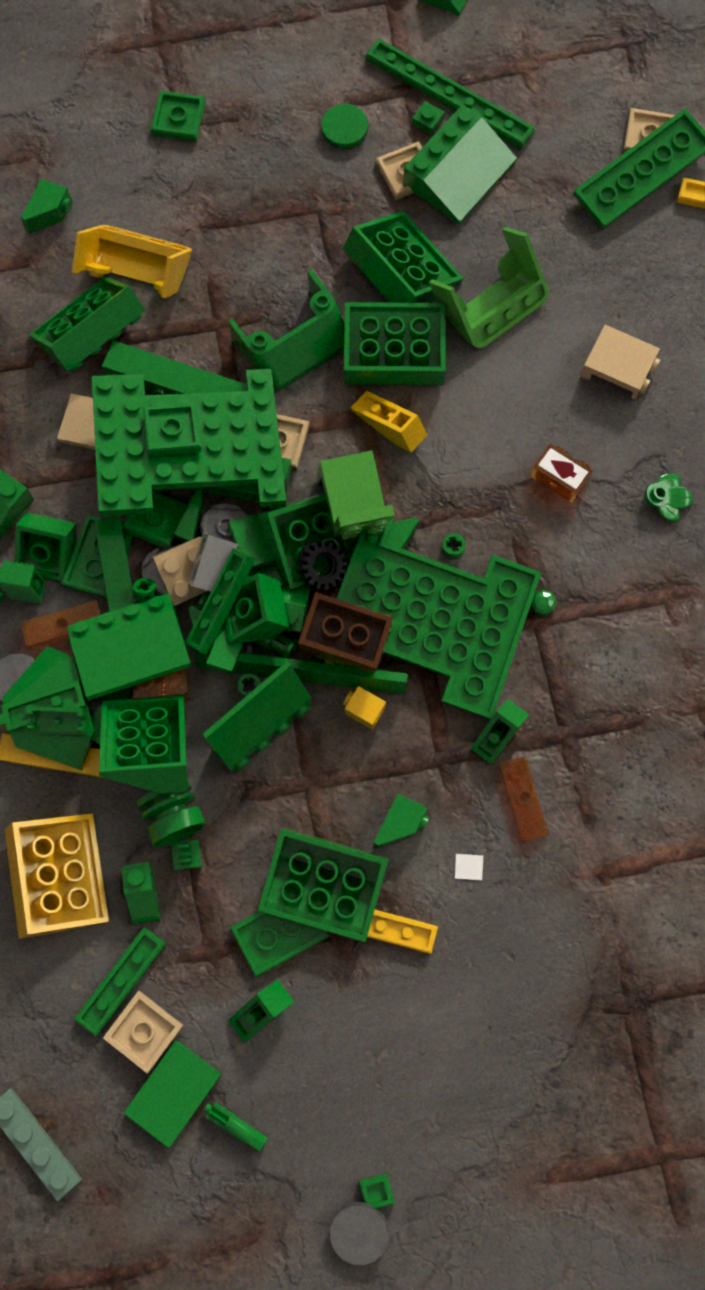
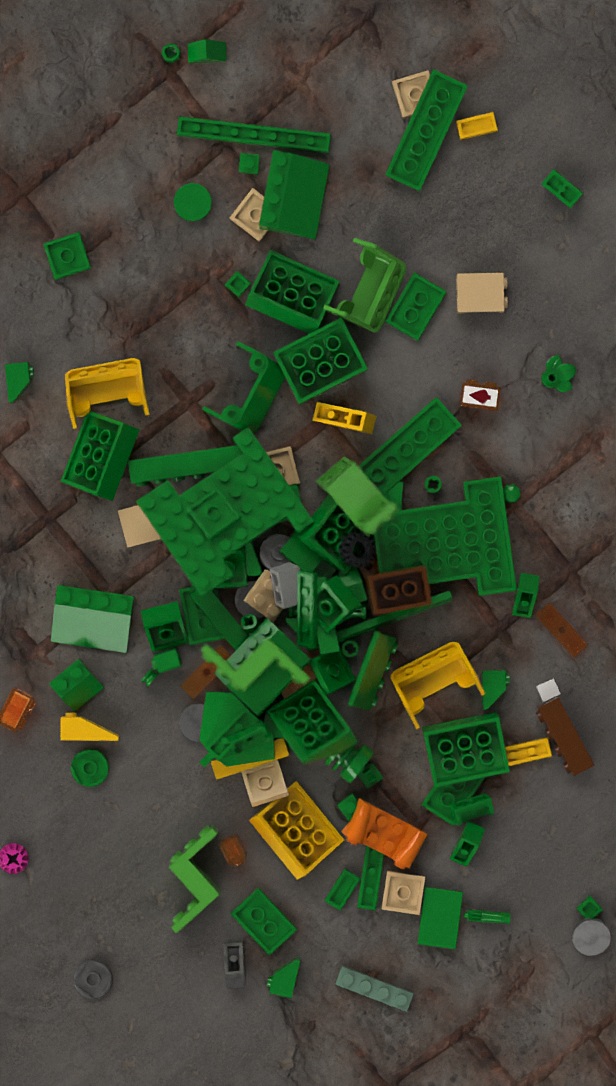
camera: 25 degrees left, 15 degrees up
(50, 793) = (265, 783): none -> tan plate
(69, 985) = (342, 889): none -> green tile
(115, 627) = (254, 665): none -> bright green bracket
(160, 937) = (384, 834): none -> orange piece
(209, 694) = (332, 671): none -> green plate
(291, 966) = (471, 808): none -> green hinge
(331, 770) = (431, 674): none -> yellow windscreen
(343, 226) = (238, 284): none -> green tile
(364, 707) = (431, 625): yellow brick -> none
(452, 486) = (409, 445): none -> green plate
(461, 936) = (565, 736): none -> reddish brown brick
(536, 345) = (415, 306): none -> green tile

